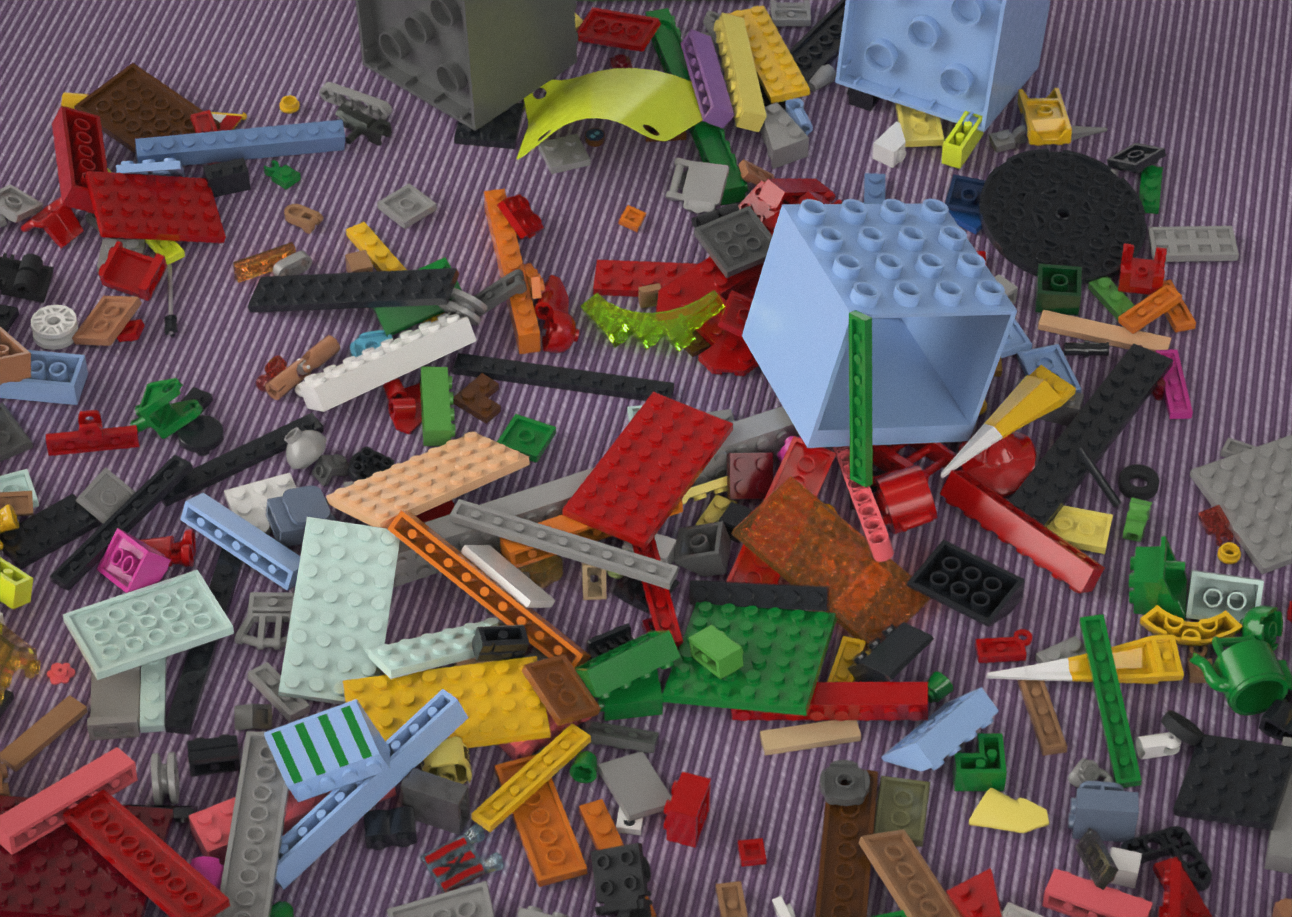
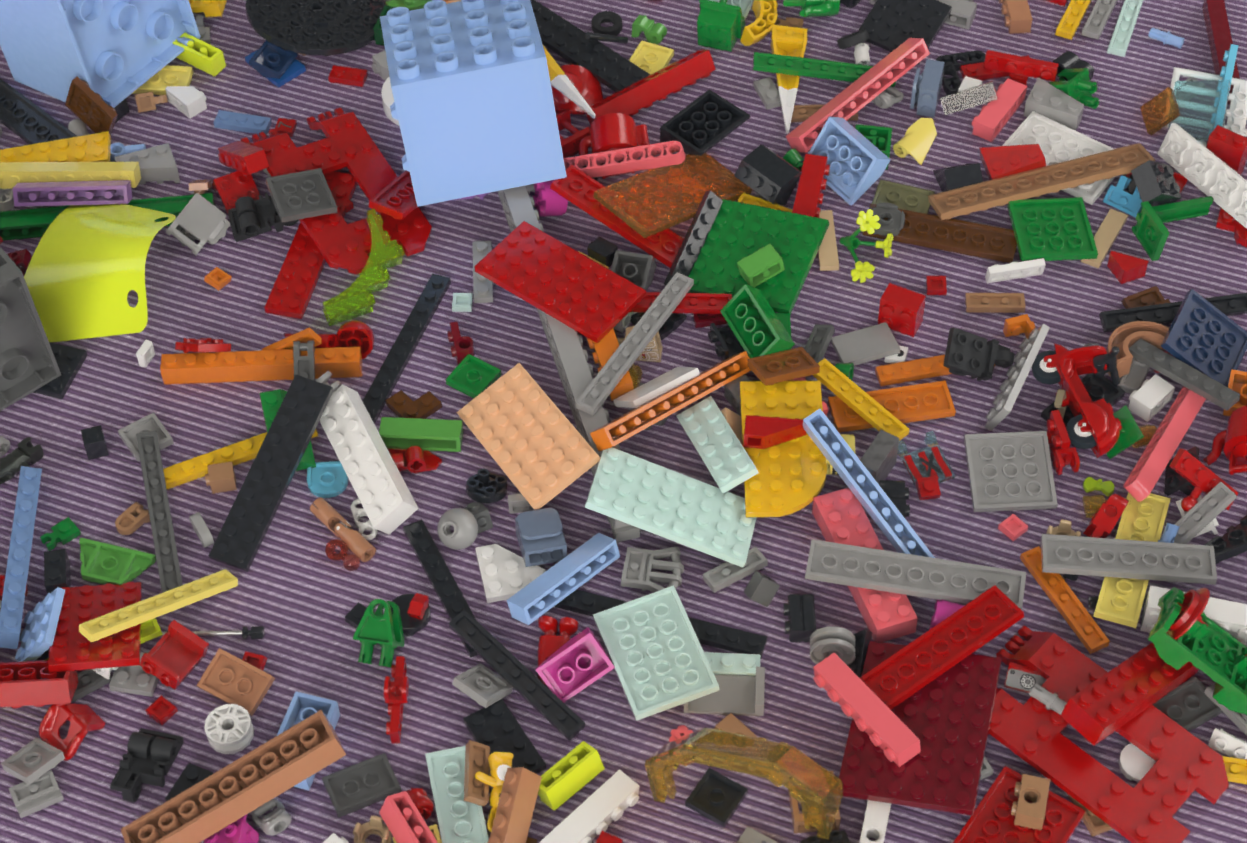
camera: 80 degrees left, 5 degrees up
(79, 281) = (161, 710): none -> red tile
(178, 241) = (157, 605): none -> light yellow plate
(198, 432) = (418, 606): none -> red piece
(246, 212) = (111, 563): none -> bright green wing
(261, 262) = (188, 550): clear orange plate -> none
(300, 231) = (159, 511): none -> dark grey plate
(328, 750) = (862, 500): light blue slope -> none
(391, 170) = (94, 442): none -> black brick
(418, 864) = (928, 488): none -> red plate
(448, 673) = (770, 431): none -> red slope
(500, 642) = (731, 398): black brick -> none
(515, 184) = (145, 353): none -> white tile
(570, 417) = (461, 344): none -> dark red plate
(648, 295) = (323, 276): medium nougat tile -> none
(749, 475) = (561, 230): dark red plate -> none
(792, 738) = (868, 223): none -> neon yellow plant
(823, 71) = (90, 107): none -> reddish brown plate
(860, 398) = (578, 101): green plate -> none
(880, 116) = (147, 102): none -> medium nougat plate
(950, 859) = (958, 176): none -> black slope
(1003, 648) = (760, 120): red hinge -> none
(1073, 738) = (860, 92): none -> coral brick

